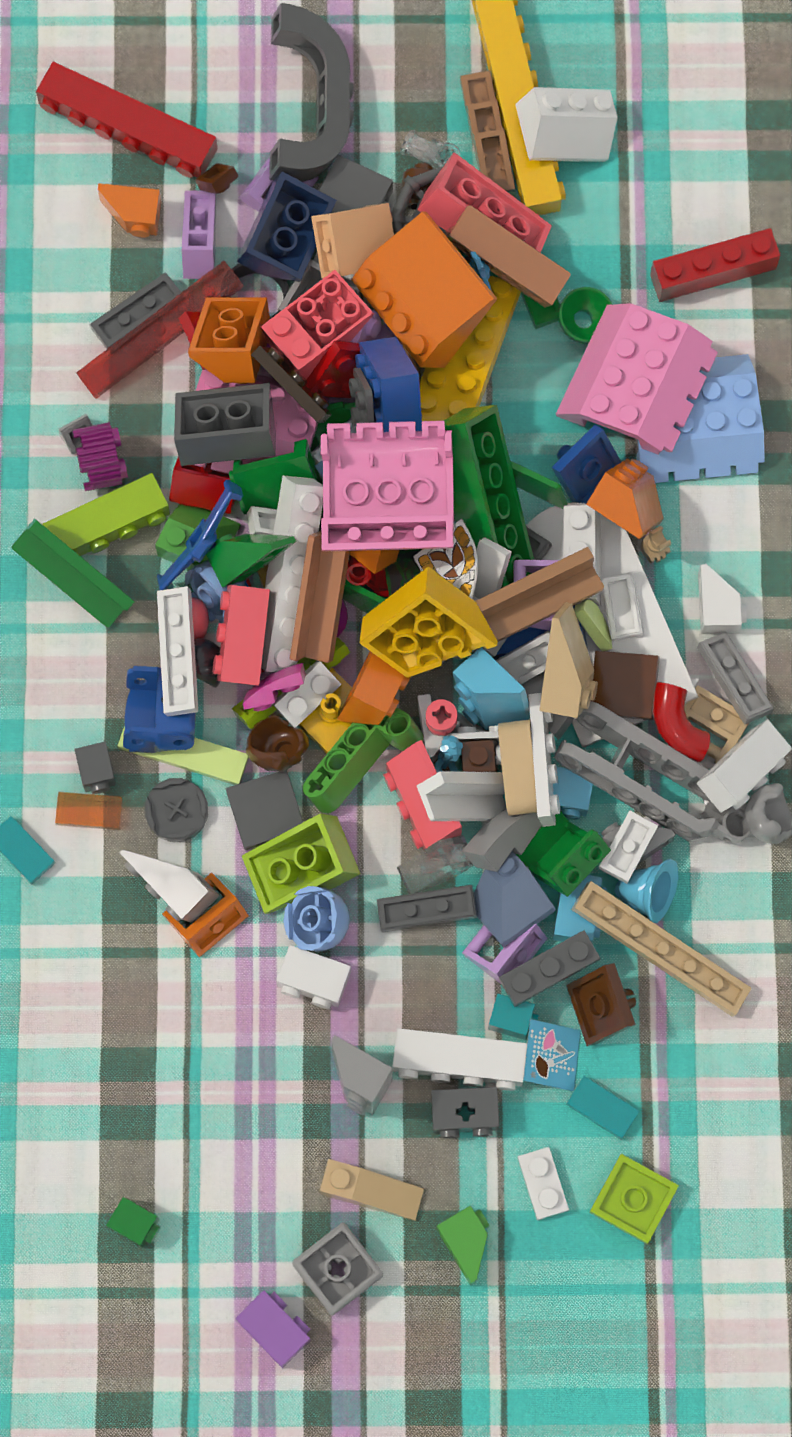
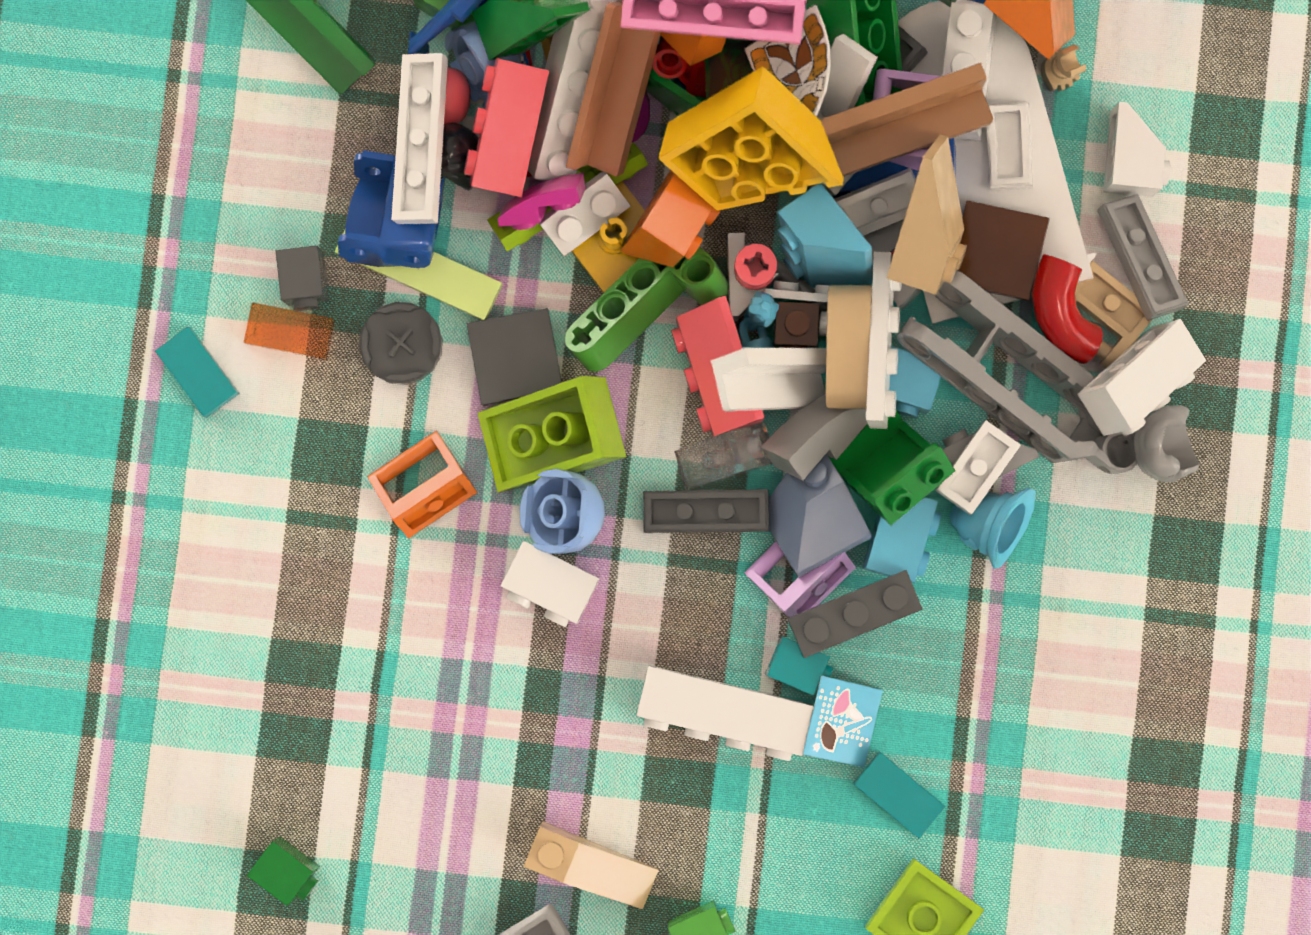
camera: 10 degrees right, 10 degrees up
(181, 888) = (389, 448): slope -> none
(276, 744) = (537, 275): reddish brown hair -> none
(360, 1076) = (591, 729): light grey slope -> none
(449, 1102) = (745, 770): dark grey brick -> none
(543, 1183) = (810, 882): white plate -> none
(594, 624) = (970, 166): yellowish green tile -> none
(601, 1004) = (916, 667): reddish brown tile -> none
(661, 948) = (1001, 603): tan plate -> none

